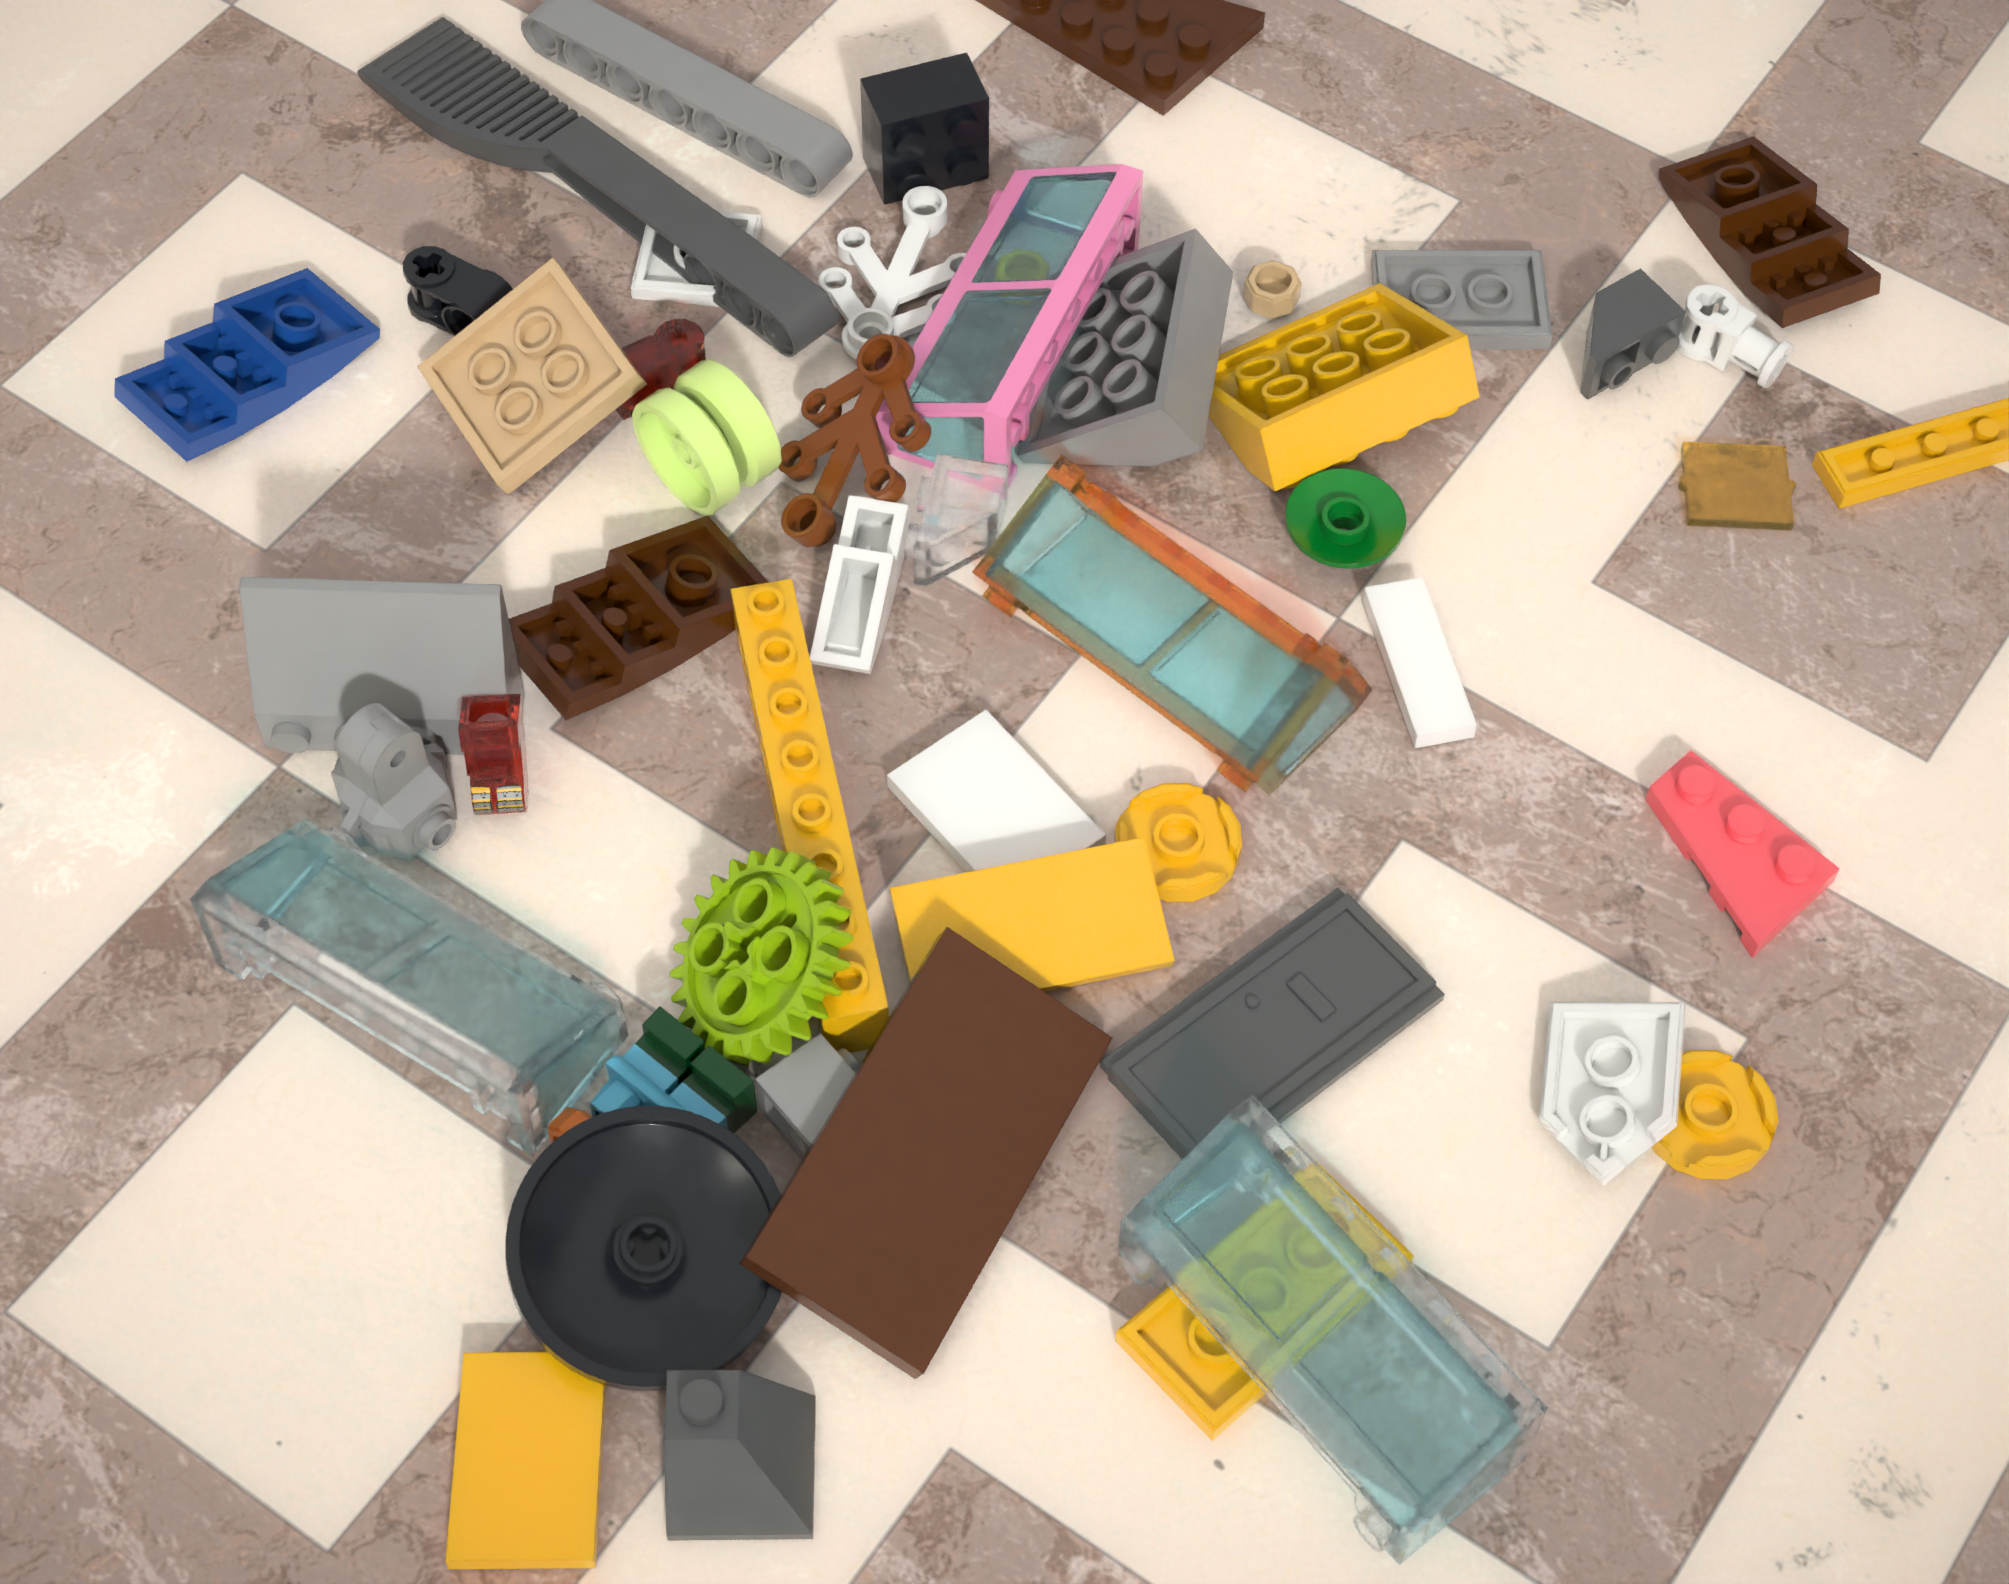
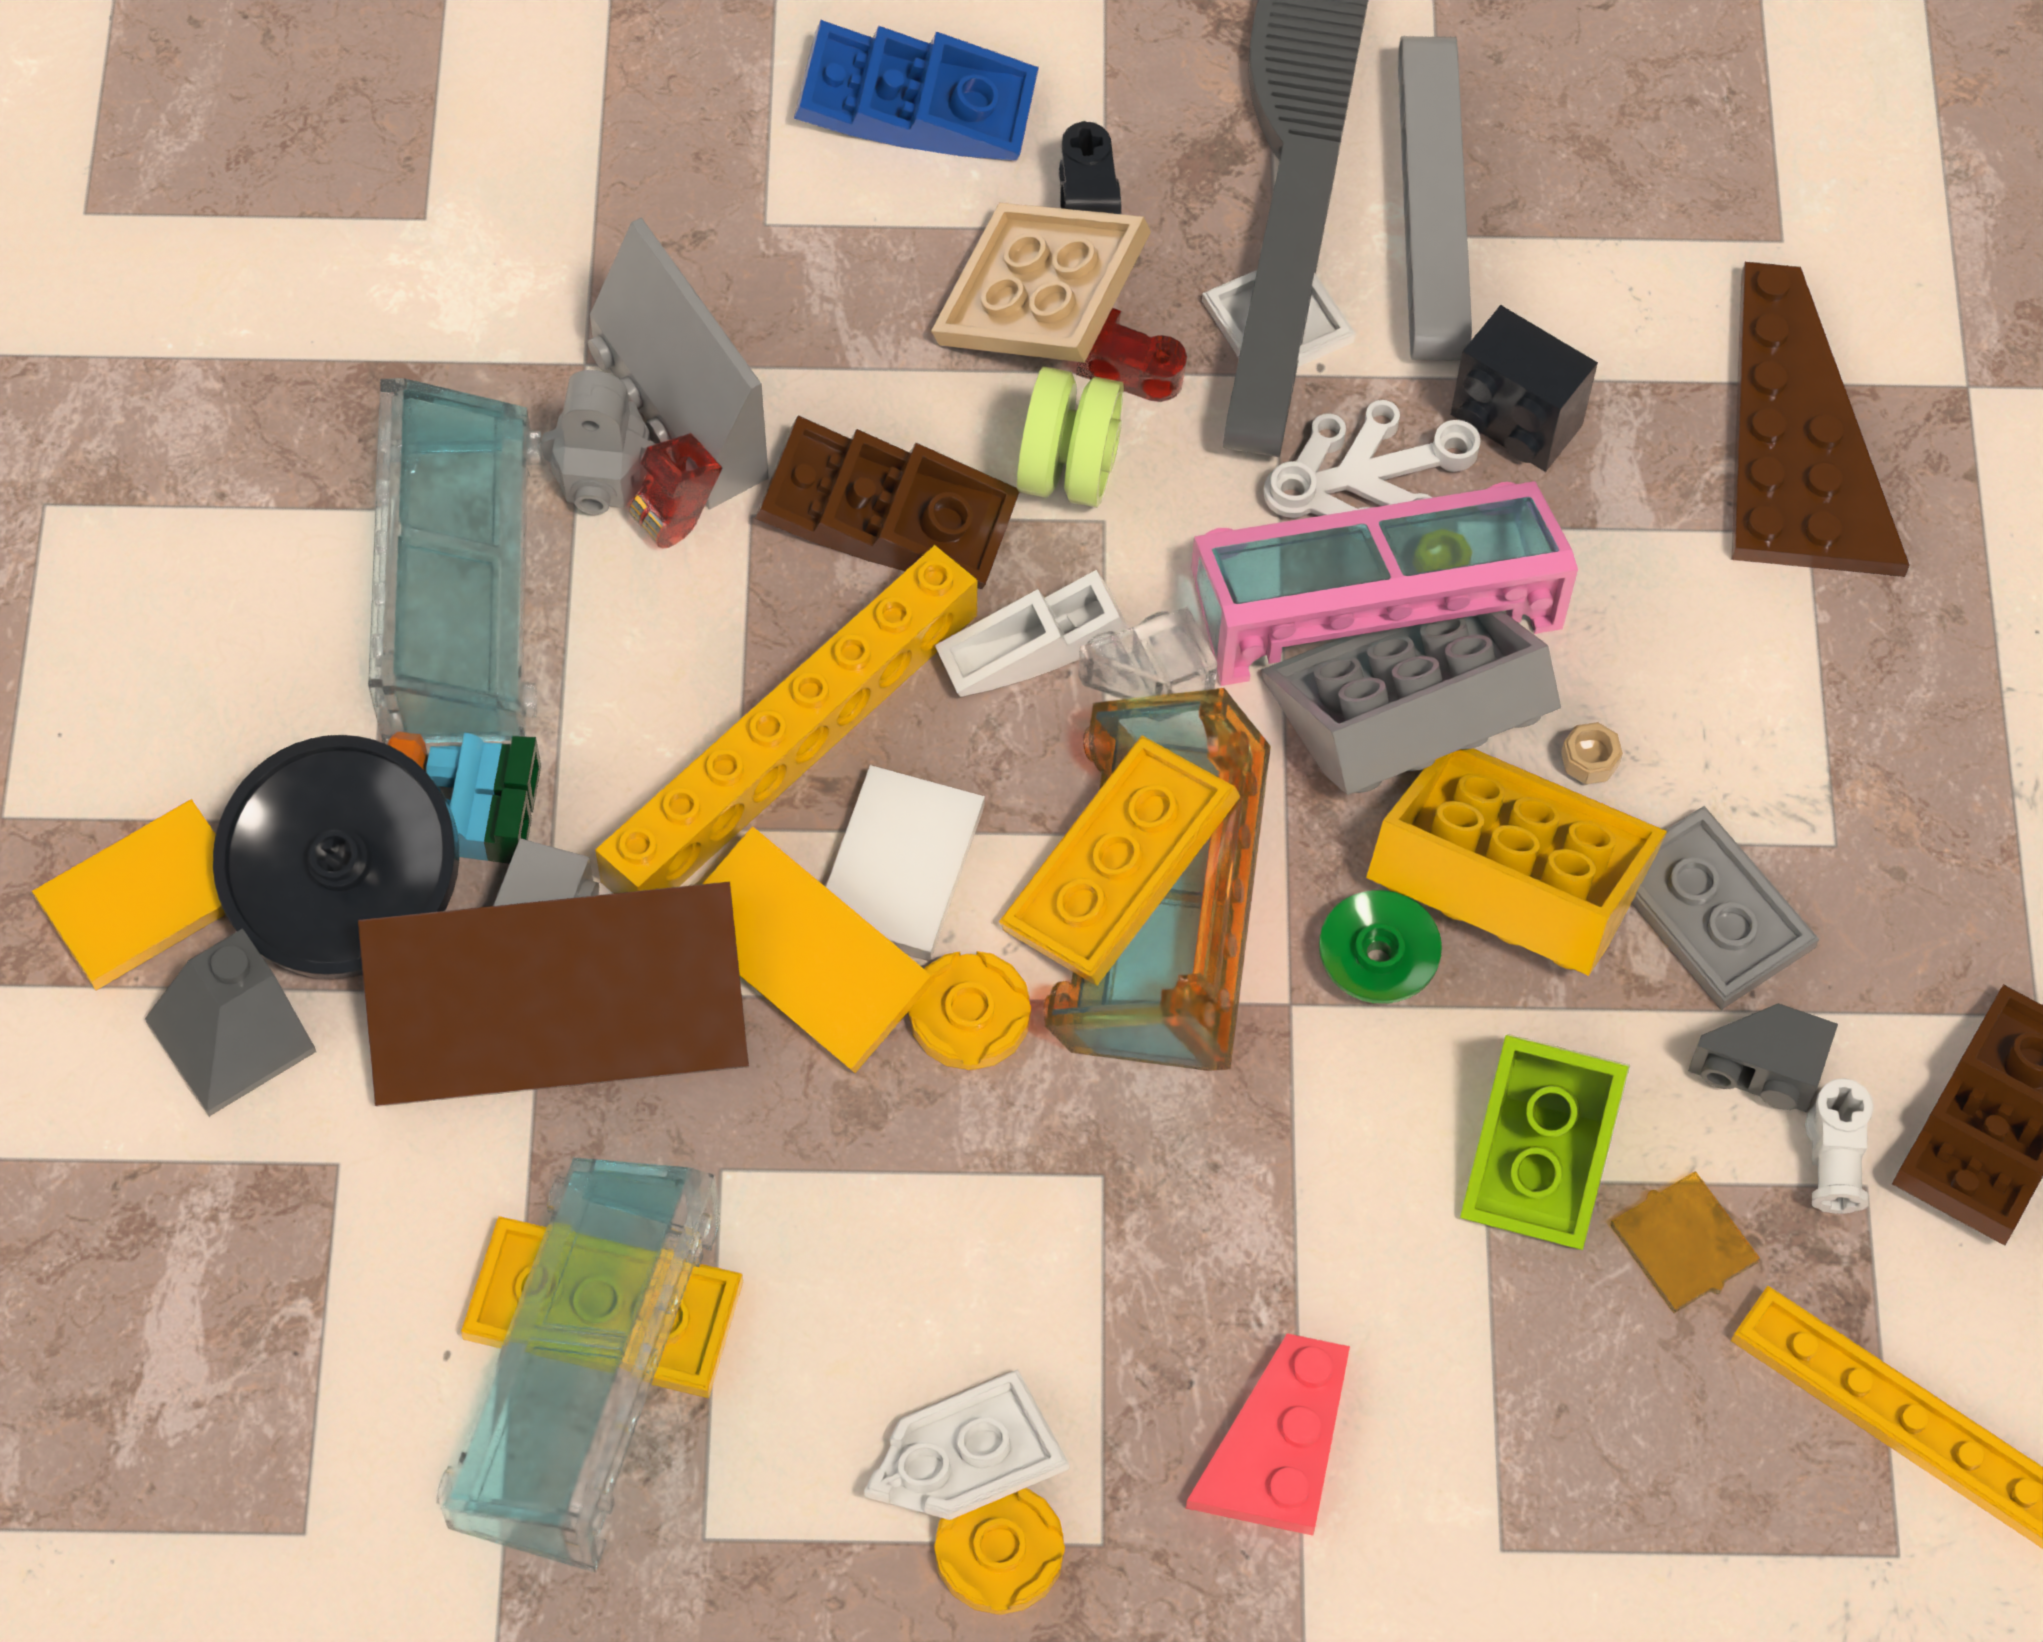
camera: 55 degrees right, 5 degrees up
(761, 956) = (620, 775): lime gear -> none
(880, 373) = (1223, 512): dark orange plant -> none
(1132, 644) = (1119, 859): none -> yellow tile
(1274, 1024) = (849, 1178): dark grey piece -> none
(1419, 662) = (1284, 1088): white tile -> none
(1597, 511) = (1544, 1141): none -> lime slope

